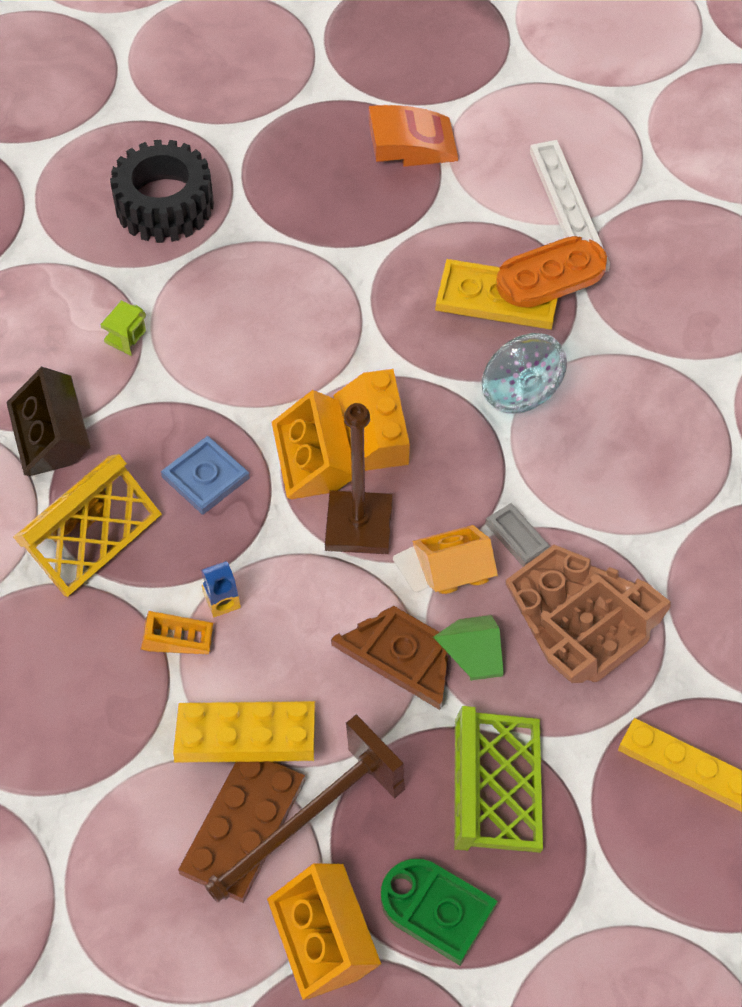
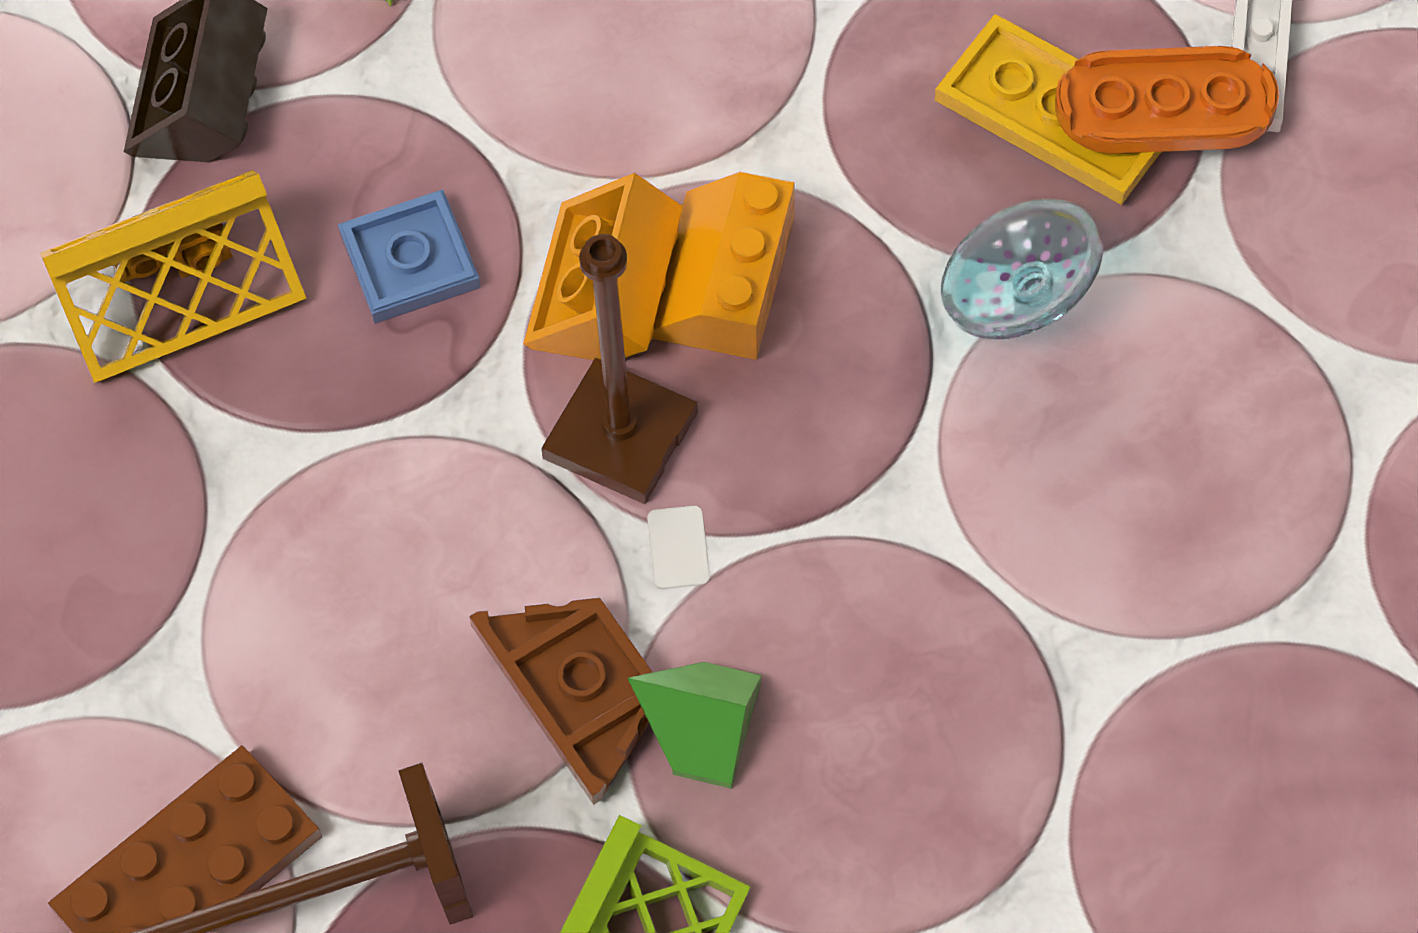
camera: 25 degrees right, 5 degrees up
(166, 644) = (206, 475): light orange slope -> none
(218, 587) = (329, 458): blue leg -> none
(245, 732) = (258, 718): yellow plate -> none
(456, 559) = (743, 555): light orange slope -> none
(516, 534) = (876, 553): light grey tile -> none
(583, 614) = (908, 735): nougat wedge -> none

